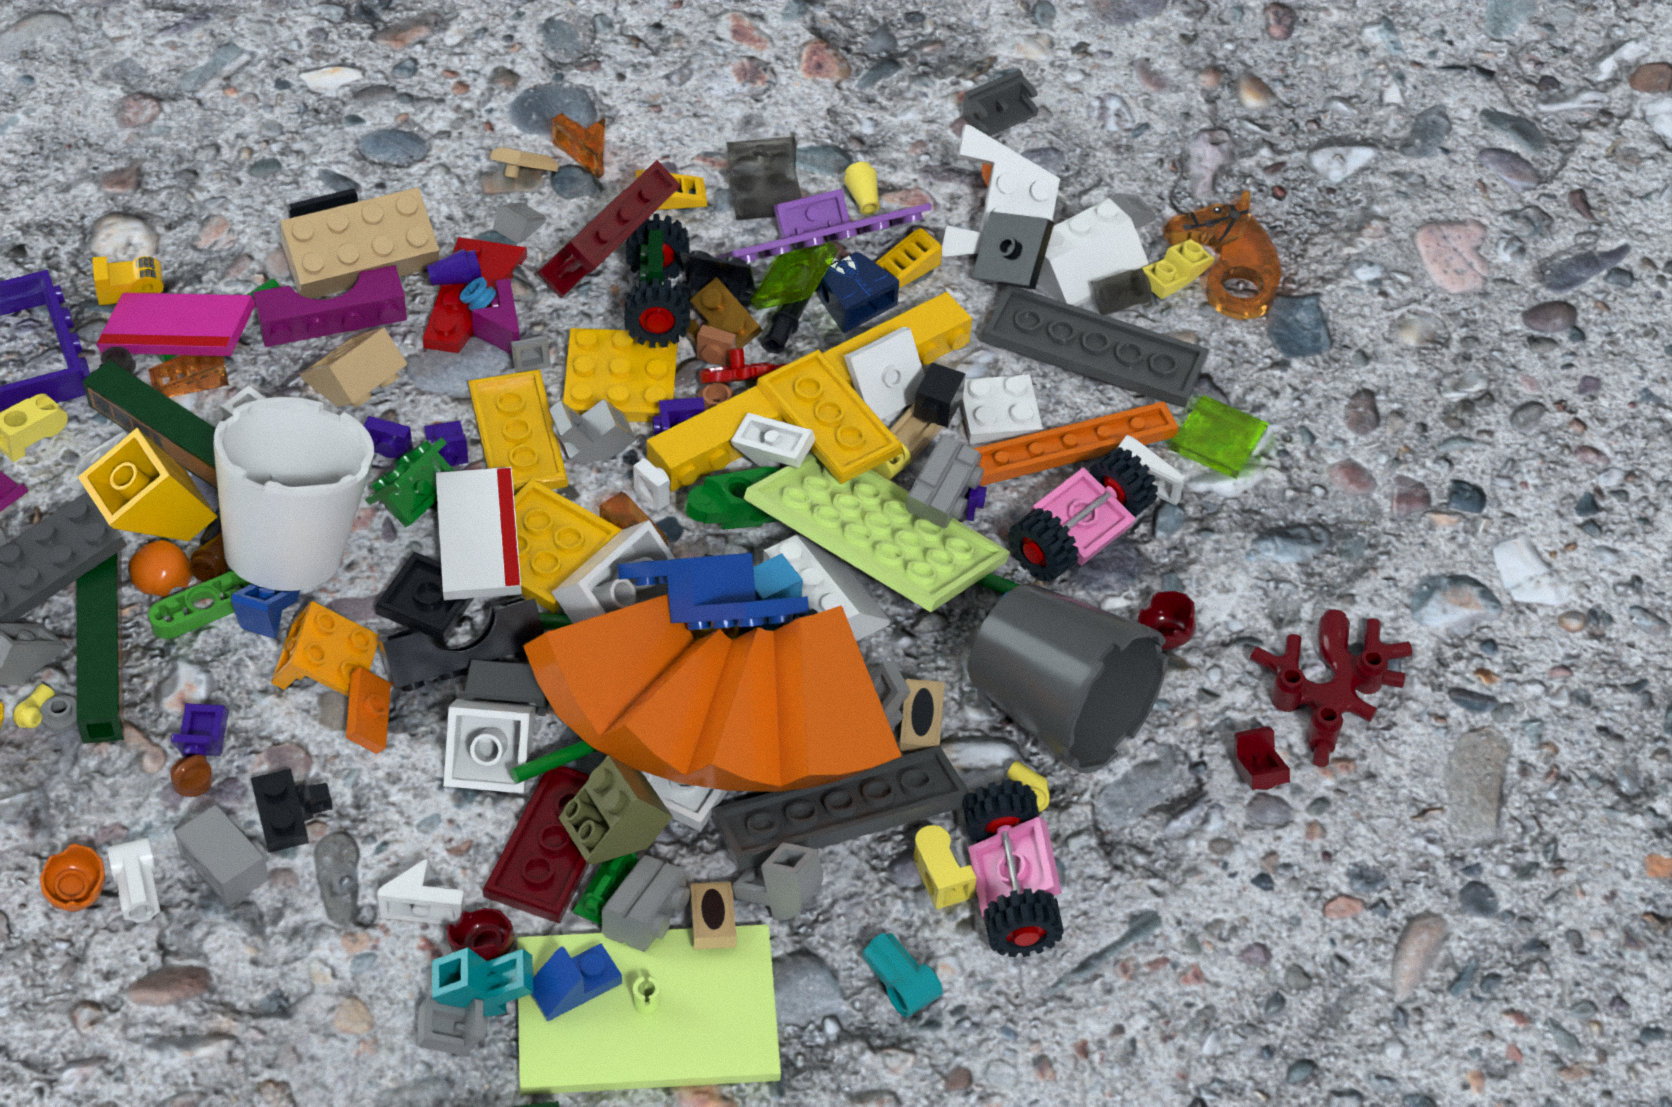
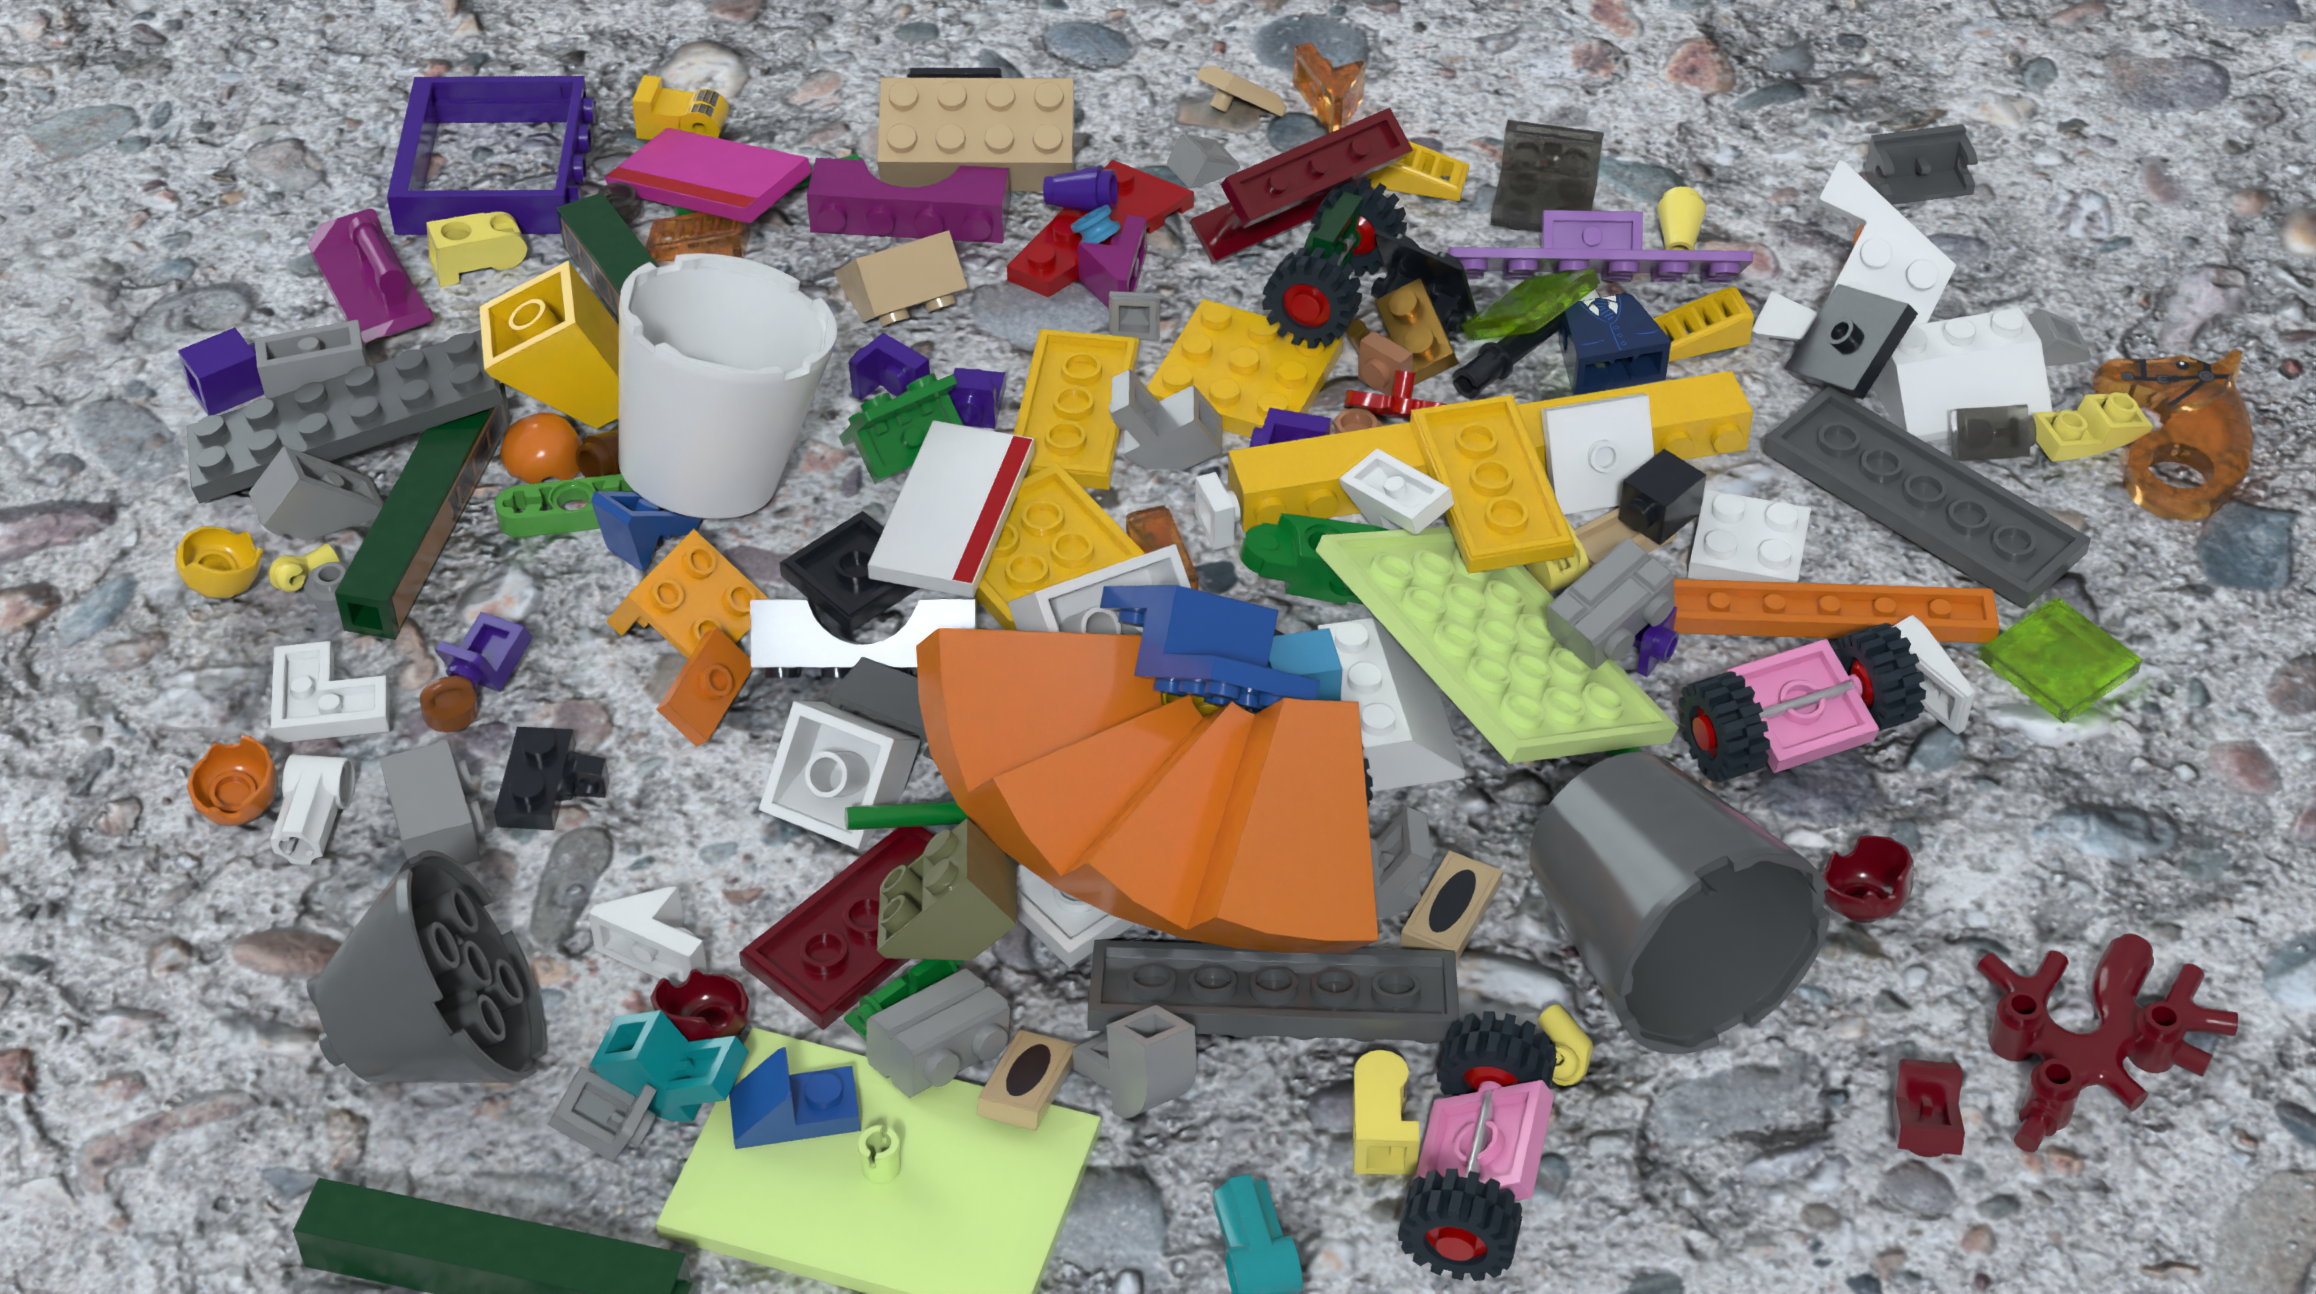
camera: 25 degrees right, 5 degrees down
(97, 806) = (314, 706): none -> white plate
(300, 984) = (430, 986): none -> dark grey cone

